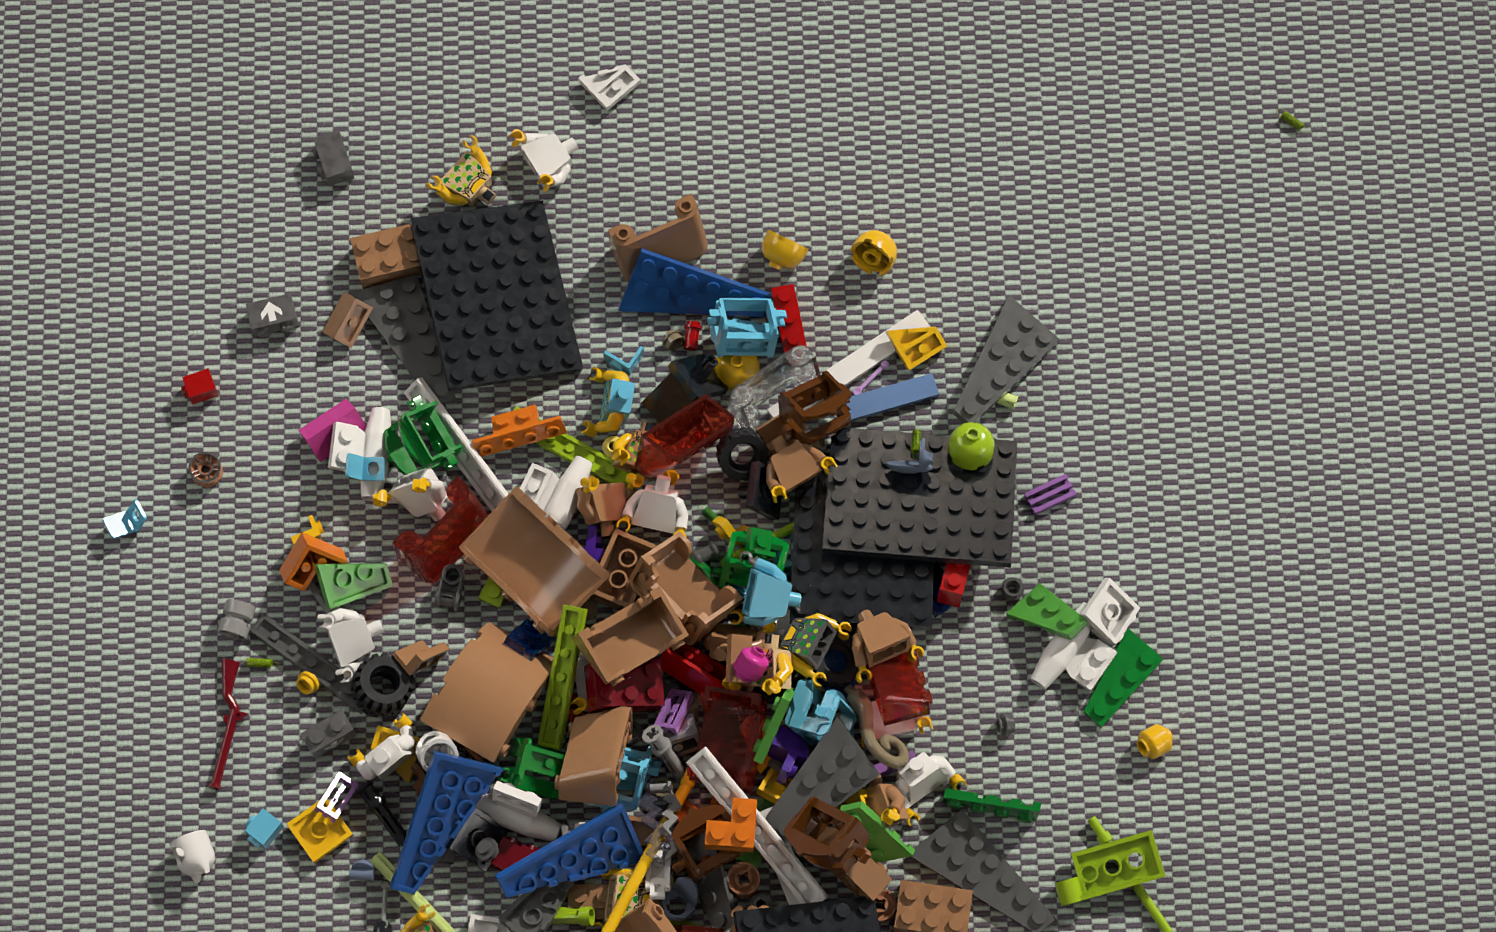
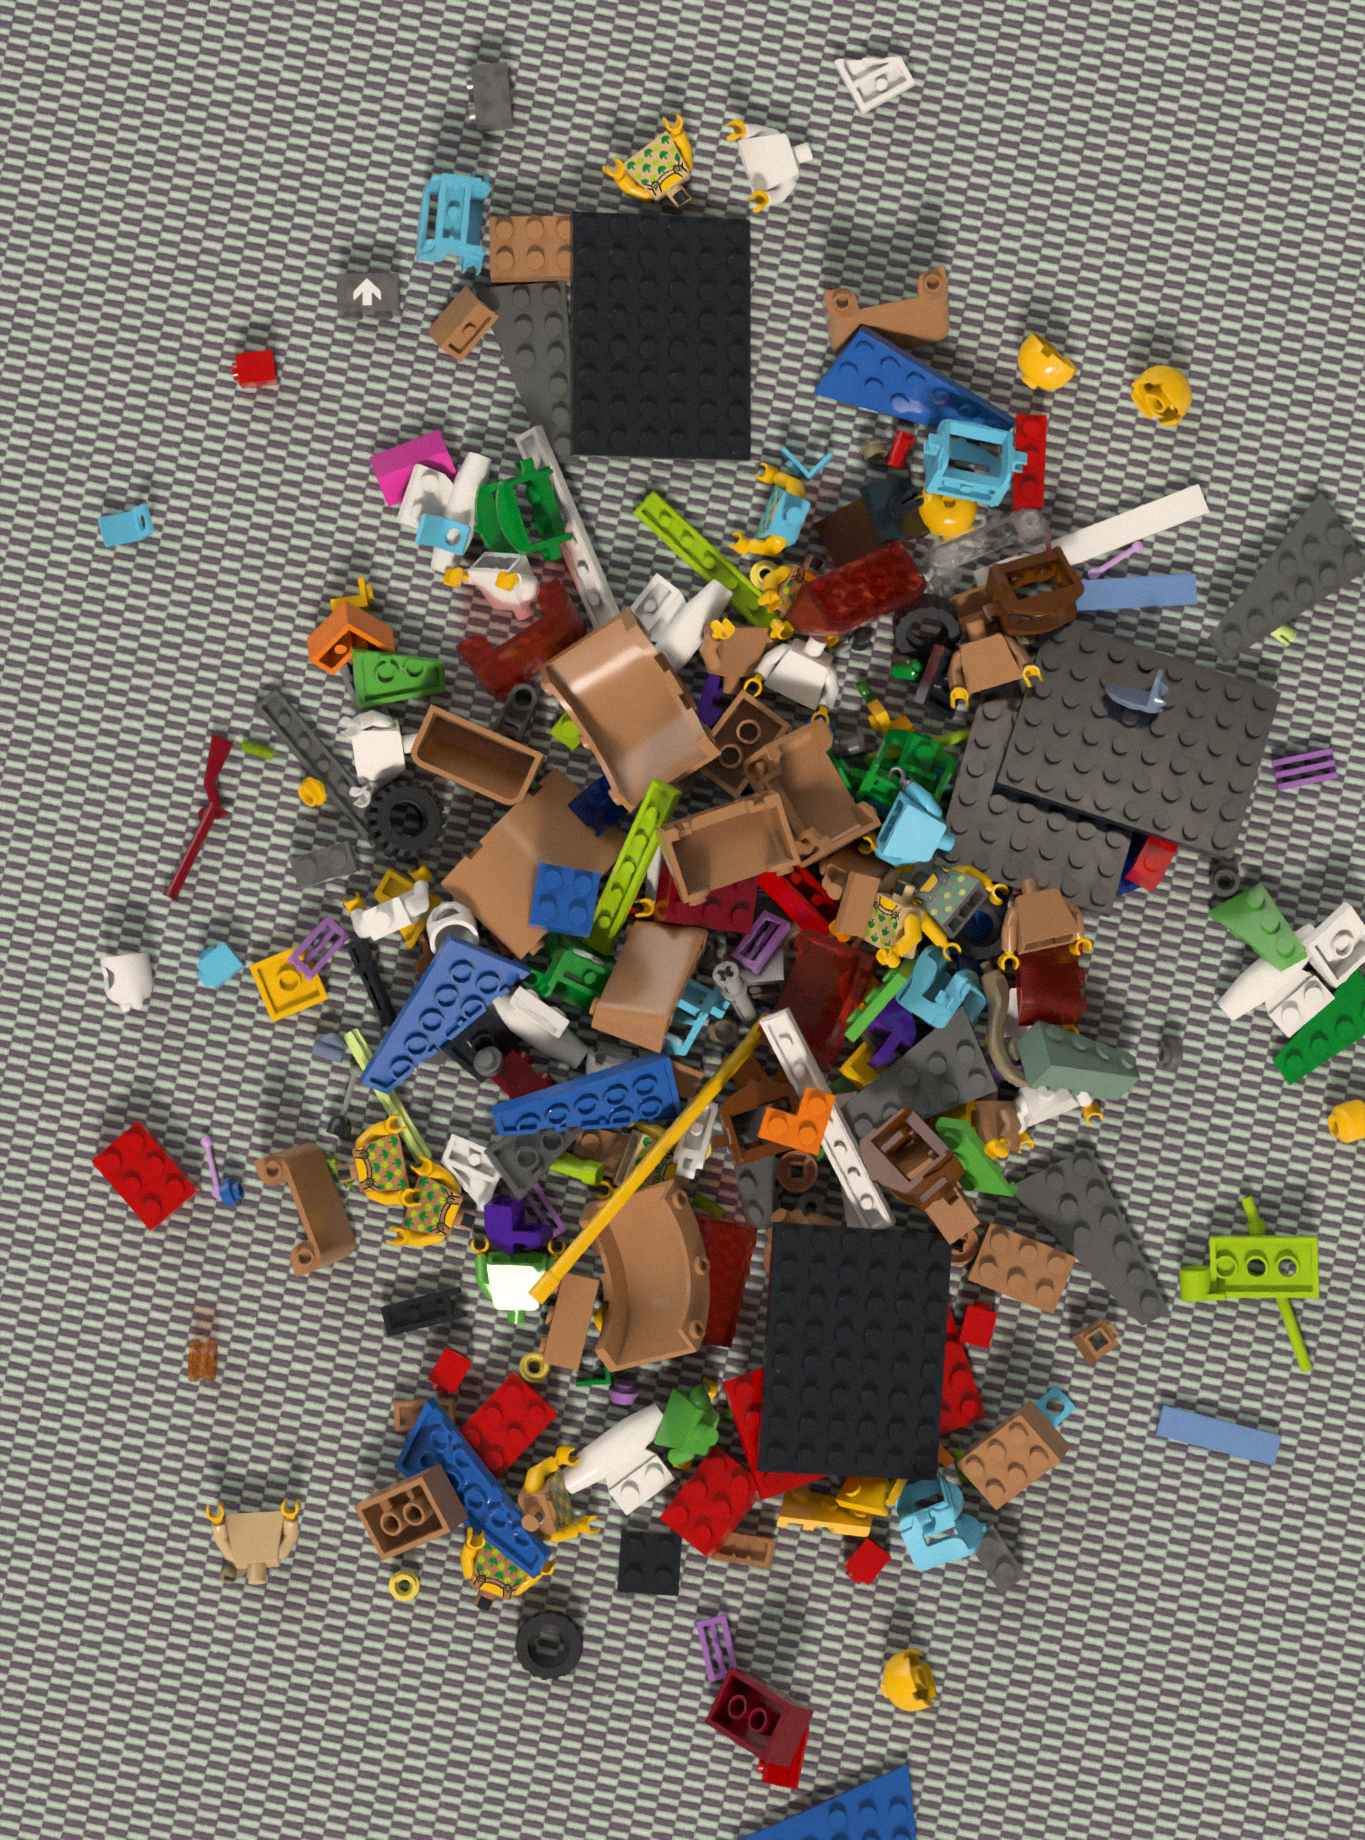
camera: 20 degrees right, 15 degrees up
(197, 466) = (231, 474): nougat wheel -> none
(236, 619) = (240, 689): light grey wheel -> none
(327, 245) = (456, 220): none -> medium azure animal
(419, 656) = (452, 798): medium nougat panel -> none
(426, 621) = (475, 757): none -> medium nougat windscreen
(516, 705) = (564, 900): none -> blue brick
(518, 429) = (648, 524): orange bracket -> none
(647, 802) = (710, 1091): piece -> none
(685, 891) = (725, 1174): sand blue piece -> none
(694, 478) = (857, 640): none -> black hinge
(735, 489) = (907, 671): none -> green arm
(751, 664) = (870, 919): dark pink head -> none
(915, 445) = (1151, 665): lime piece -> none
(916, 344) = (1185, 531): yellow wing -> none
(934, 741) = (1075, 1063): none -> sand green wedge
(971, 446) = (1220, 689): lime cylinder -> none
(992, 803) = (1137, 1160): green wing -> none

